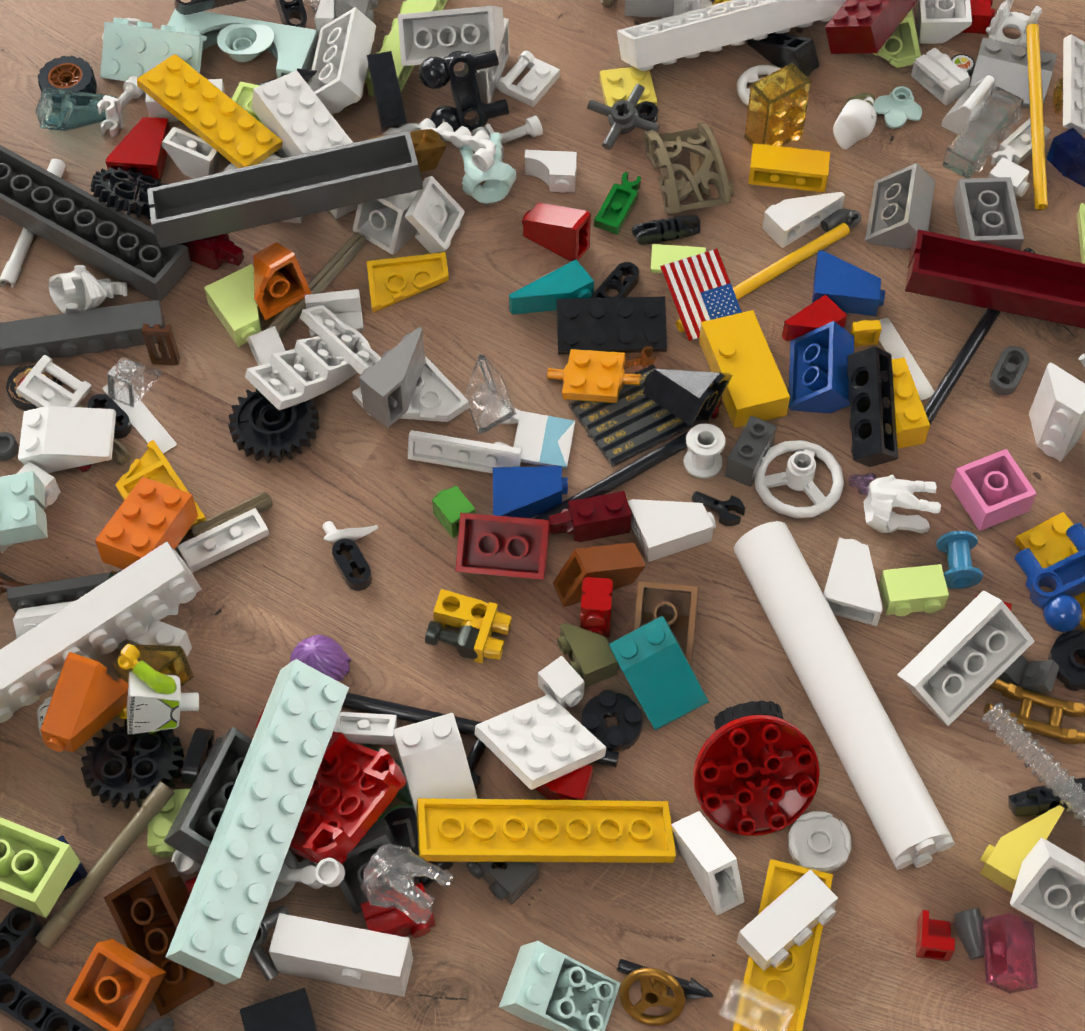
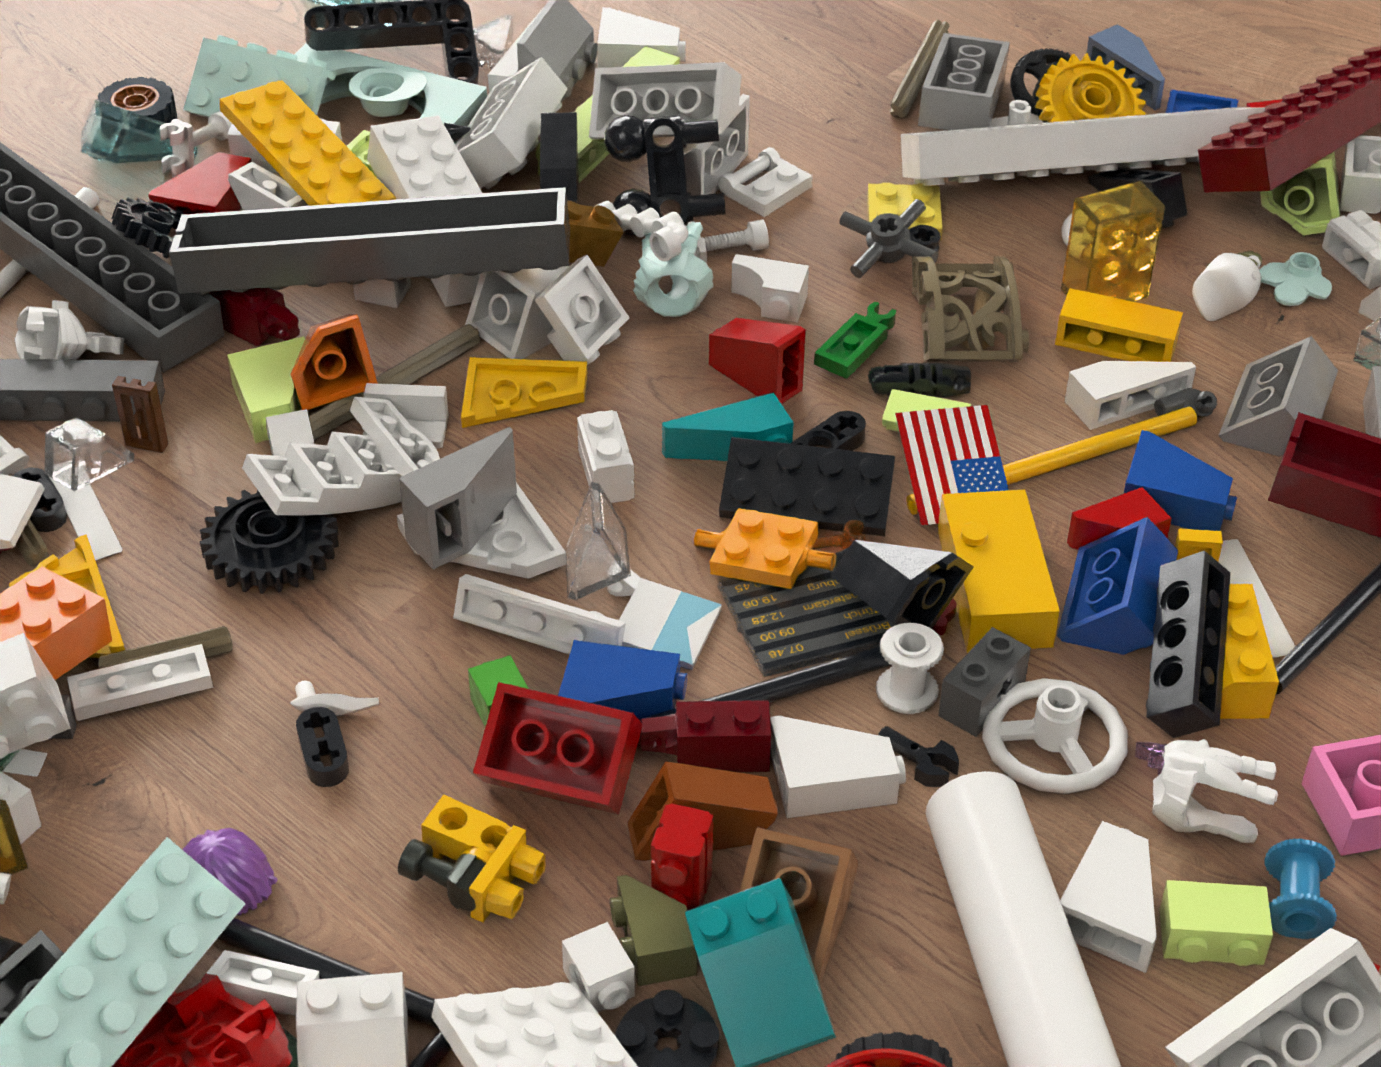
camera: 10 degrees right, 15 degrees down
(476, 324) = (606, 454): none -> white brick

